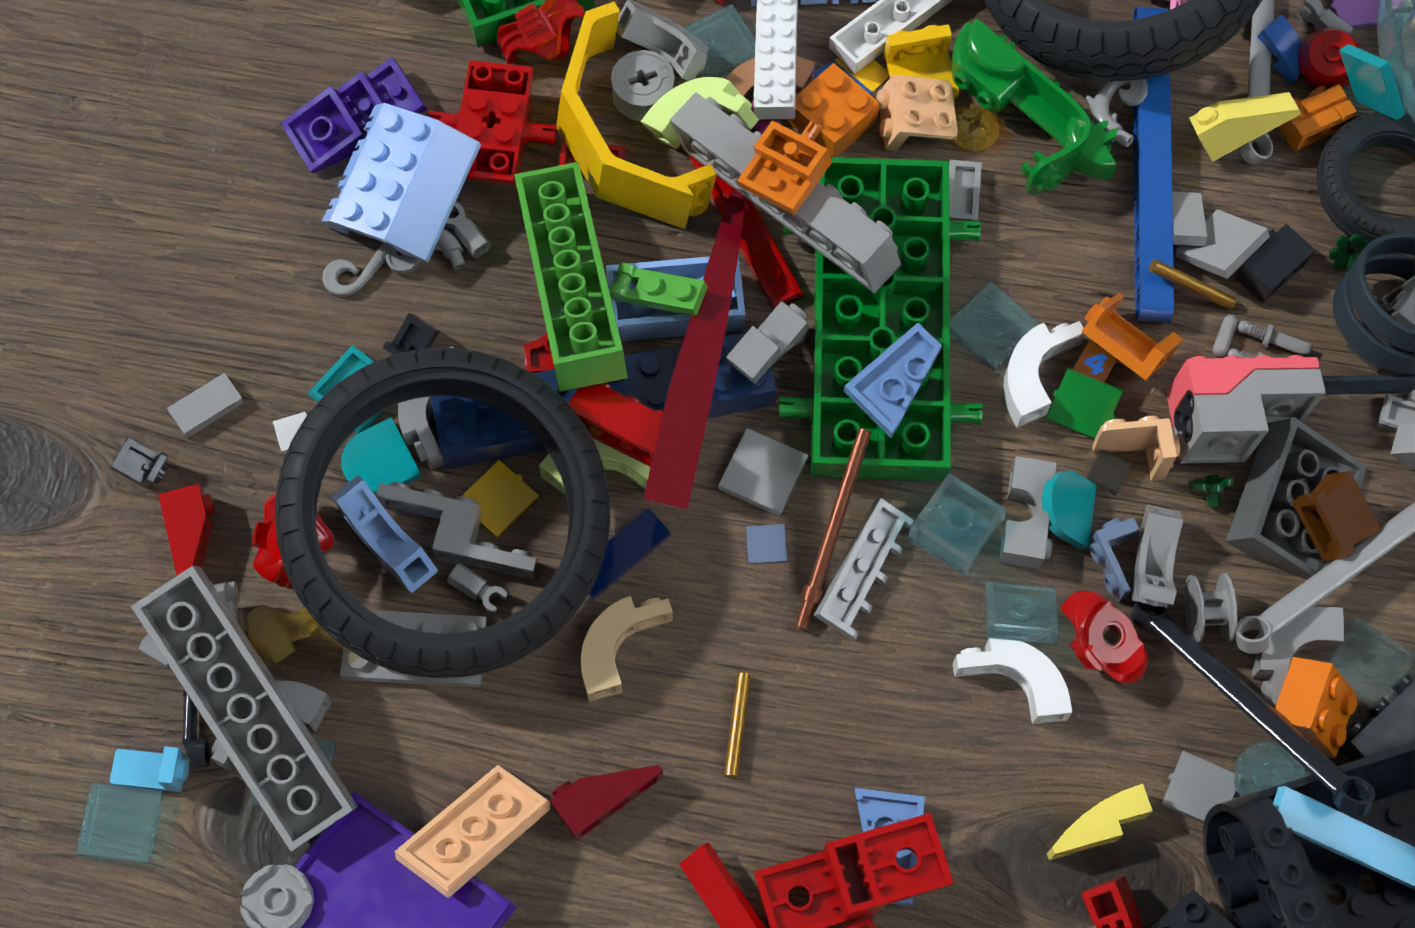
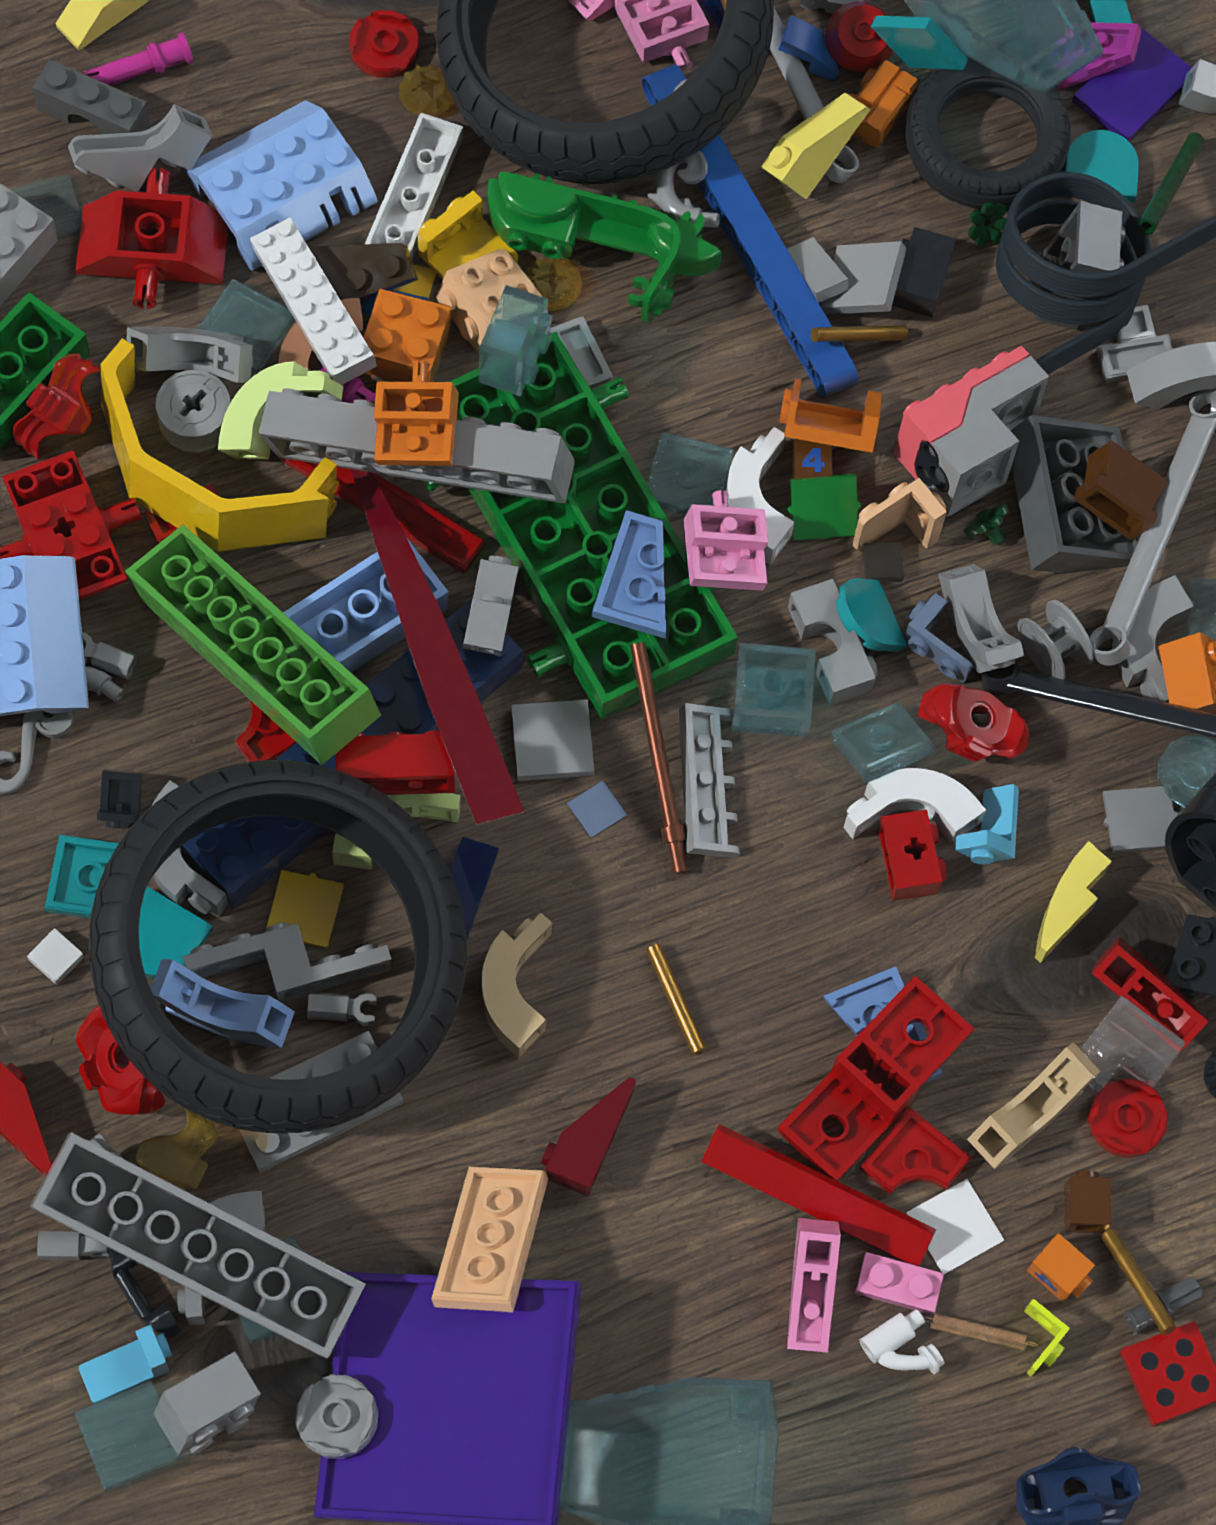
camera: 35 degrees left, 0 degrees up
(182, 834) = (207, 1405): none -> light grey brick
(658, 290) = (352, 611): bright green plate -> none
(831, 42) = (365, 268): none -> dark brown wing
(906, 148) = (514, 341): none -> clear light blue brick
(978, 730) = (905, 875): none -> red brick
(982, 391) = (726, 545): none -> bright pink plate
(1071, 739) = (998, 828): none -> medium azure bracket
(1268, 336) = (957, 347): light grey piece -> none

